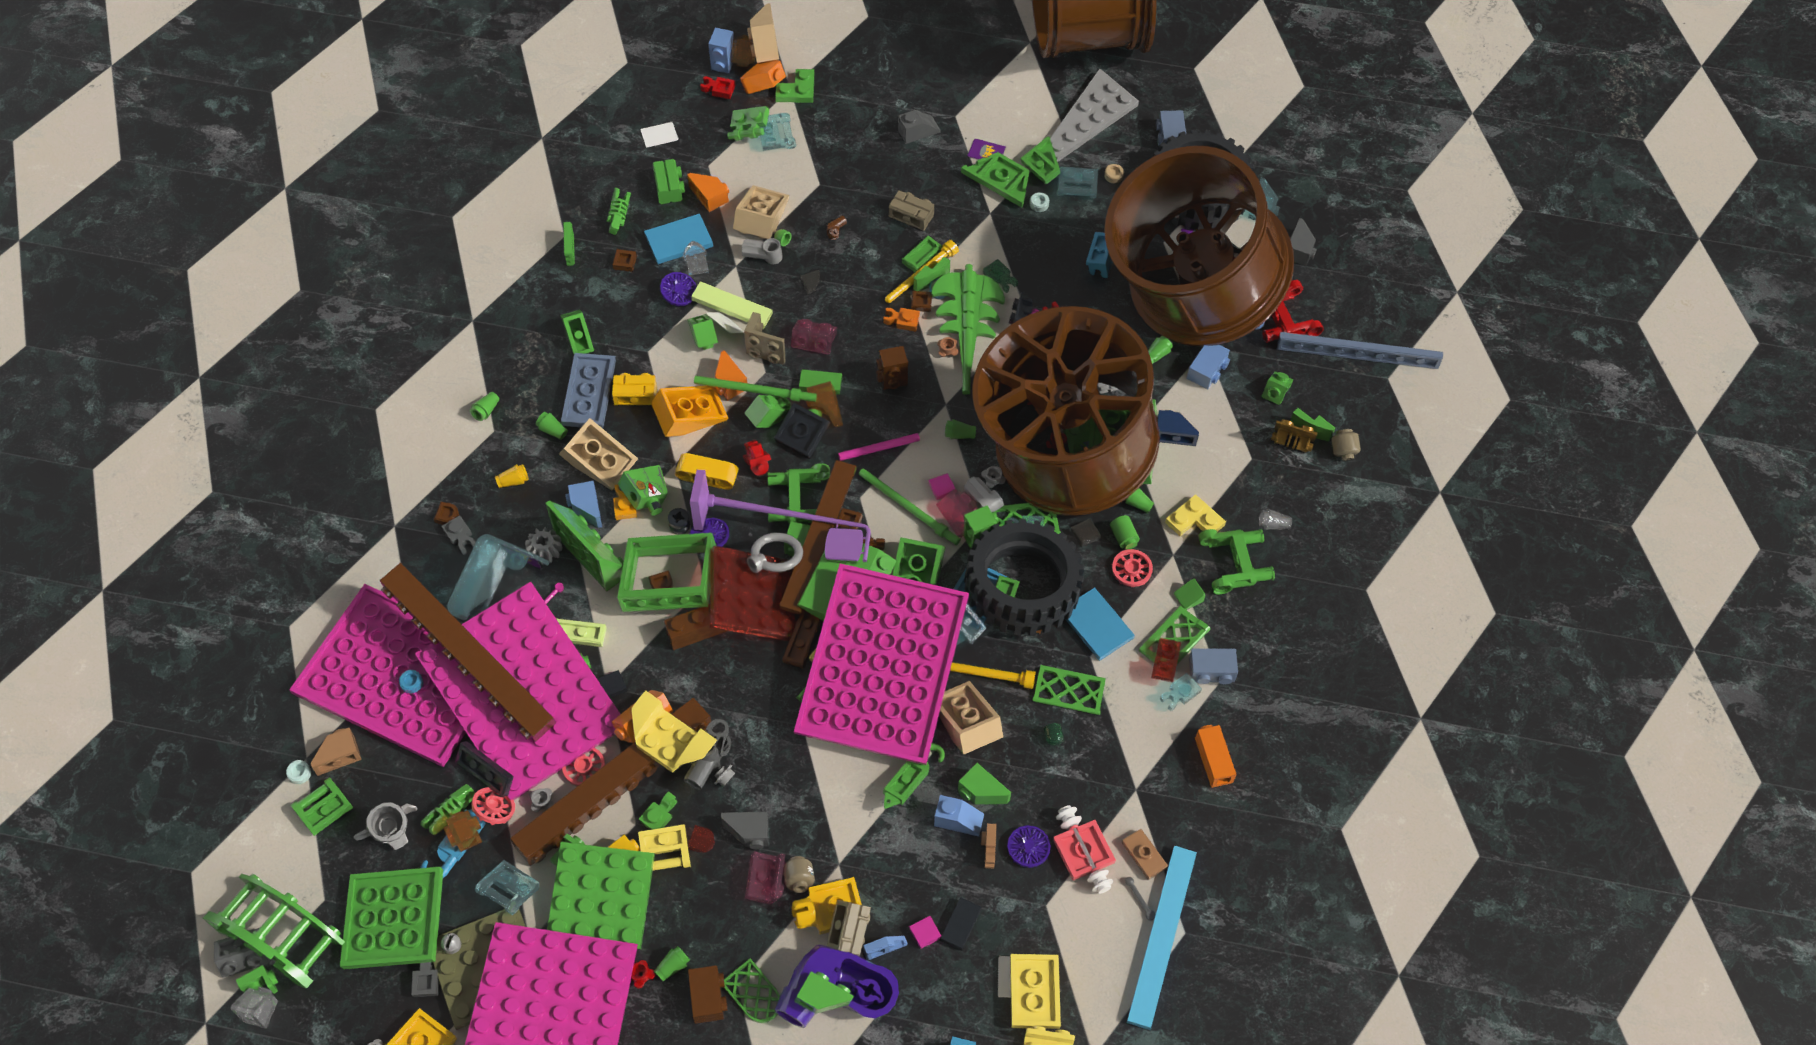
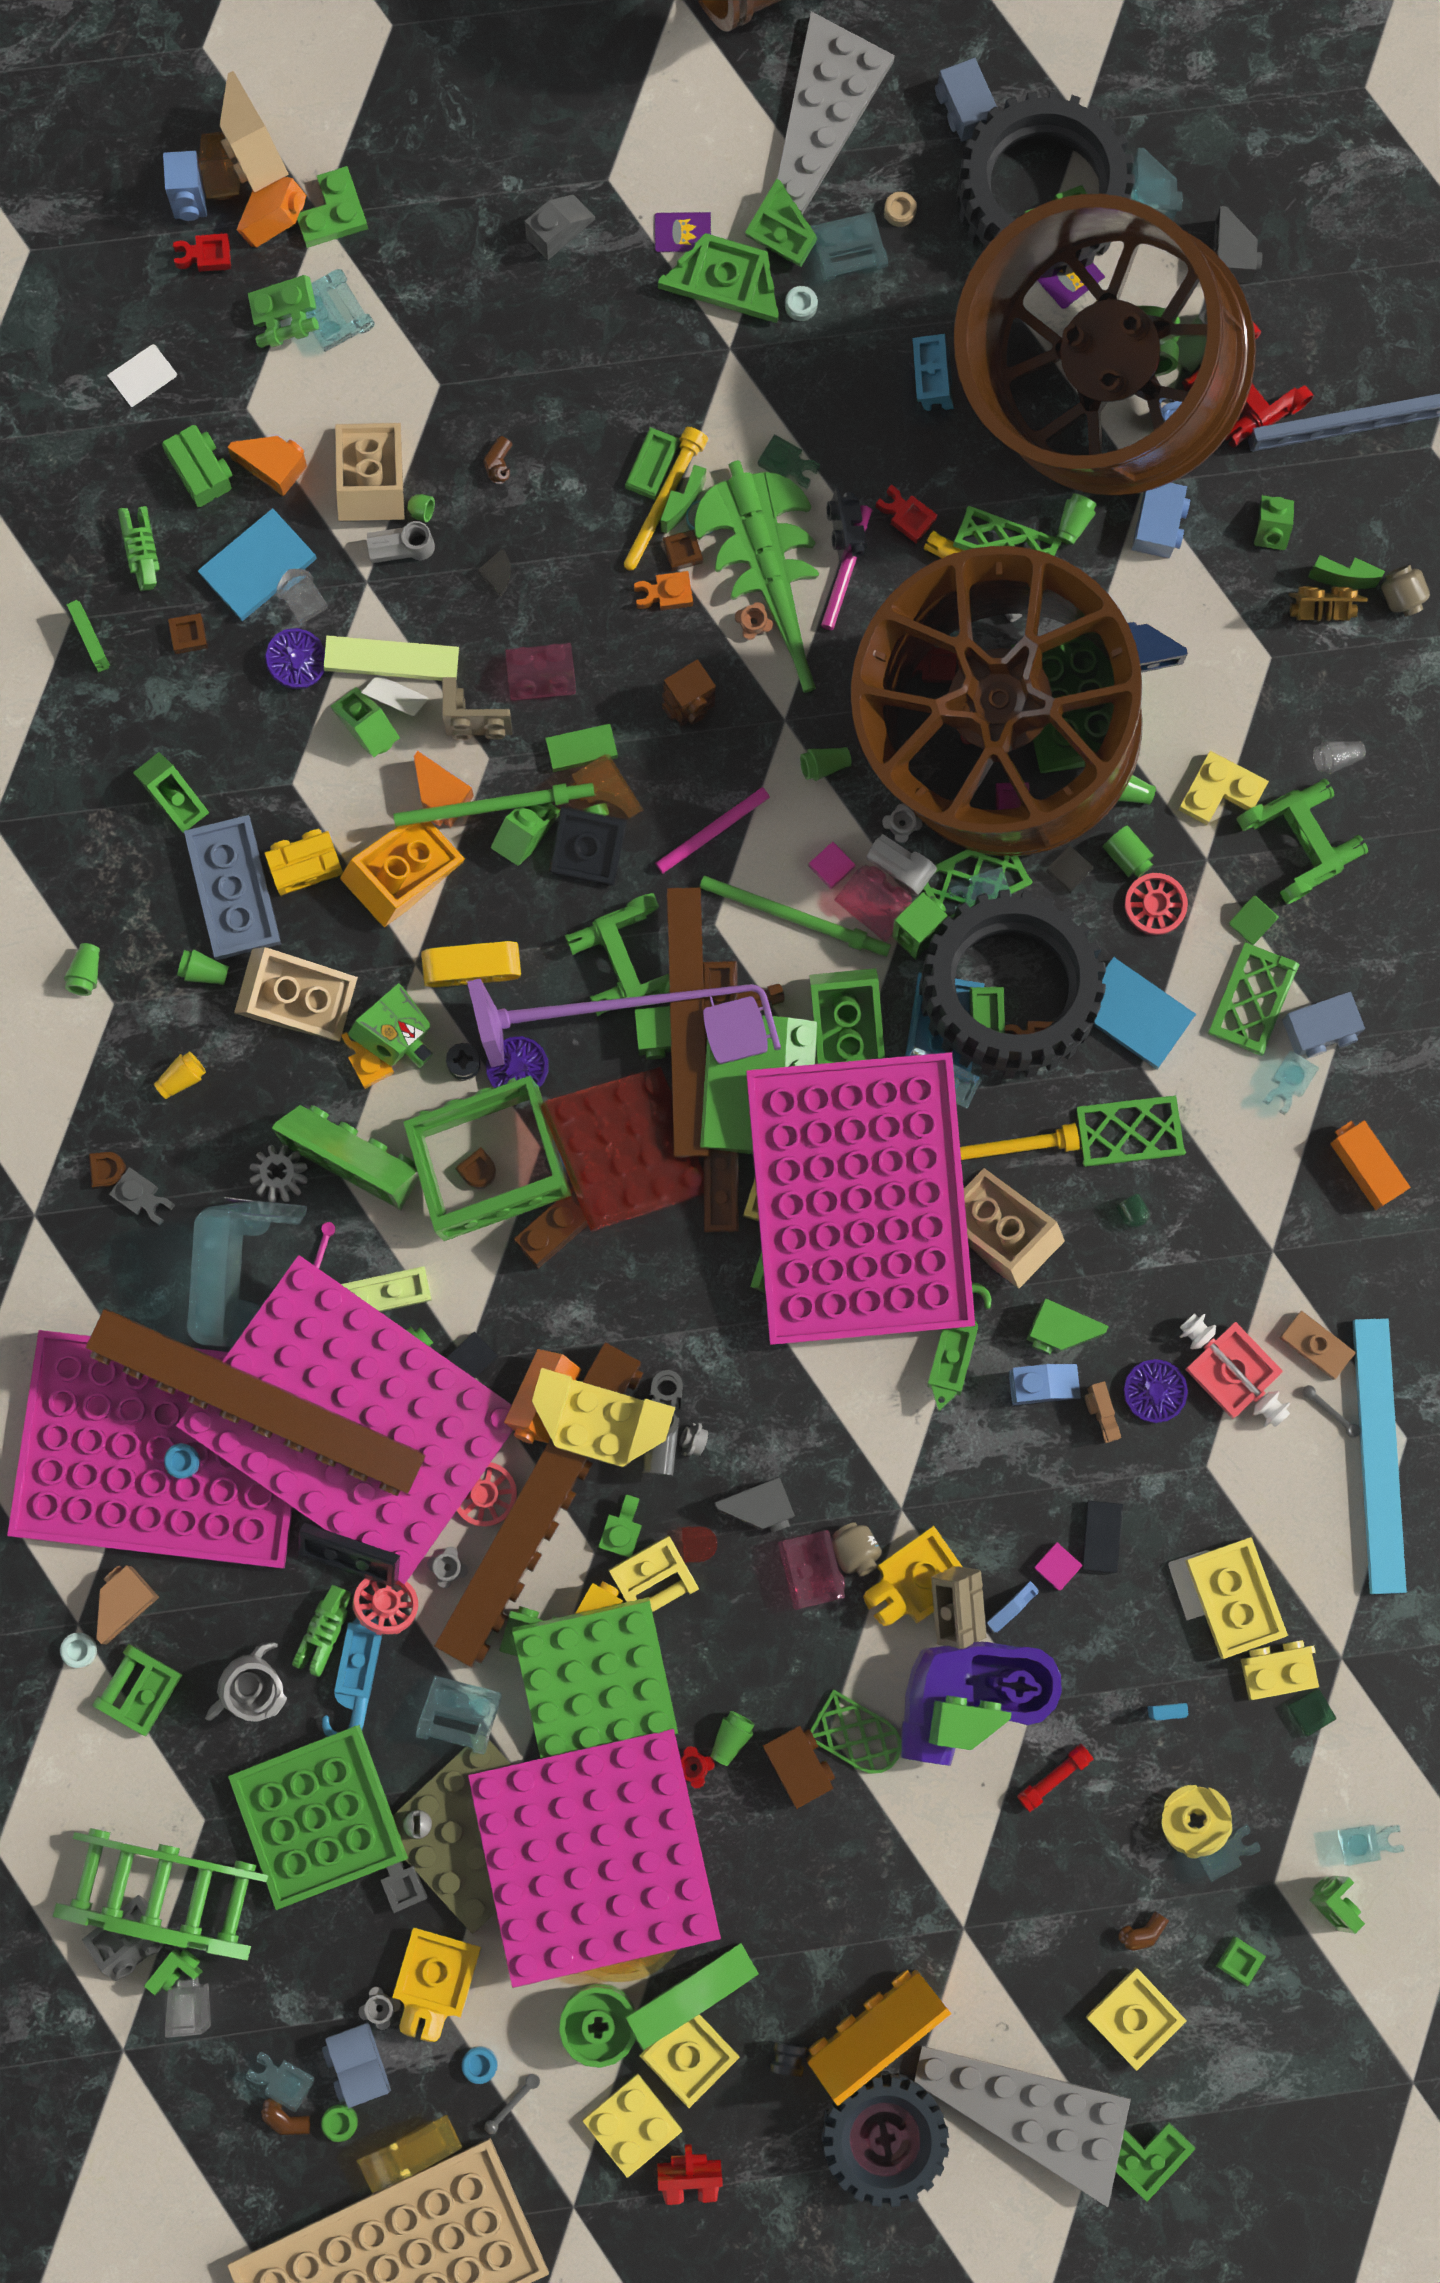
camera: 25 degrees left, 20 degrees up
(463, 830) = (362, 1660): clear orange brick -> none
(584, 502) = (309, 1081): medium blue slope -> none
(756, 457) = (538, 916): red hips -> none
(758, 561) = (619, 1101): light grey piece -> none
(911, 210) = (607, 389): dark tan brick -> none
(1166, 660) = (1255, 1041): clear red slope -> none

